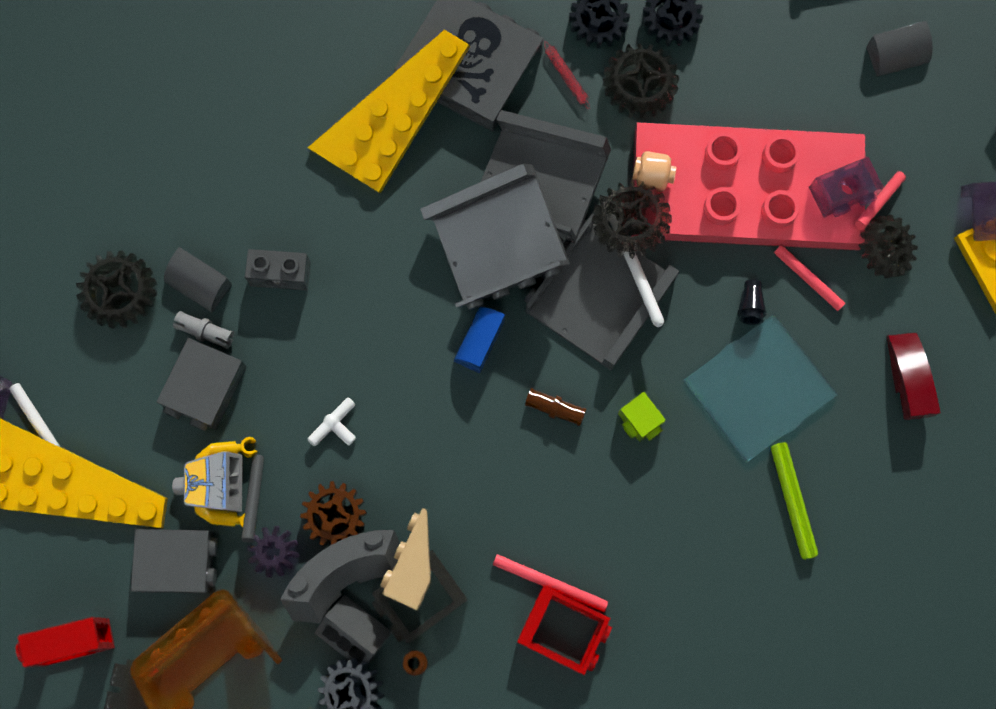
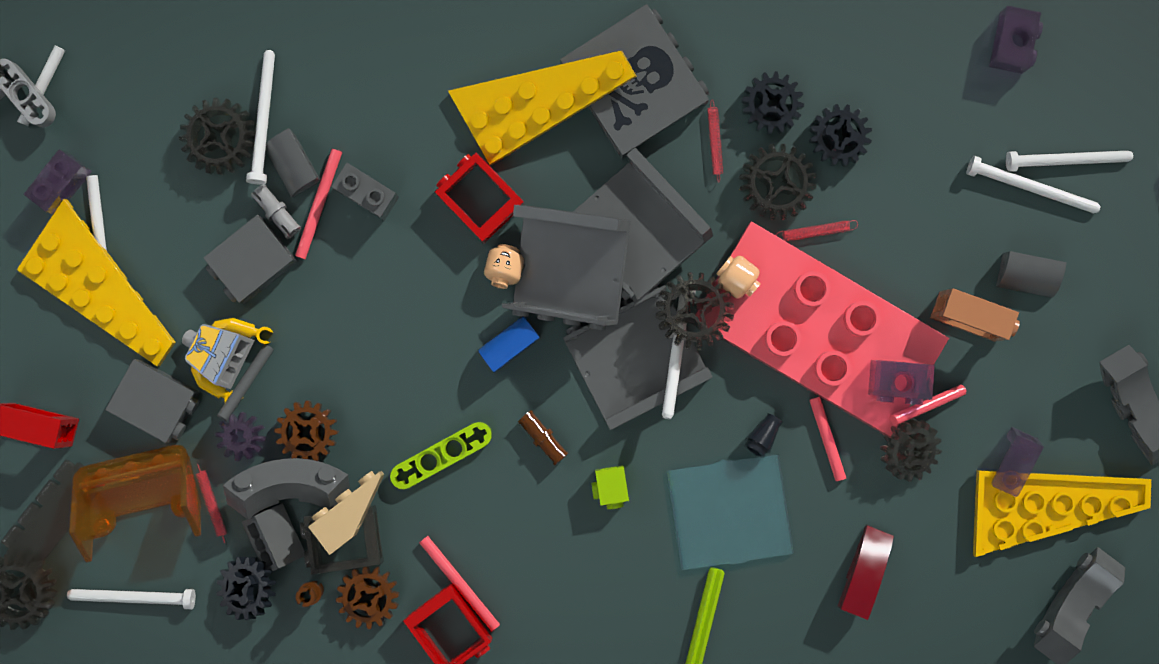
camera: 30 degrees right, 10 degrees up
(170, 304) = (256, 175): none -> white bar
(239, 305) = (318, 204): none -> coral bar
(268, 626) = (212, 504): none -> coral piece
(333, 423) = (346, 351): white piece -> none
(412, 233) = (501, 217): none -> red window
(438, 272) = (504, 266): none -> light nougat head
(459, 631) = (373, 608): none -> reddish brown gear
(466, 470) = (441, 455): none -> lime beam
(707, 103) = (818, 231): none -> coral piece
(875, 102) = (975, 315): none -> nougat window

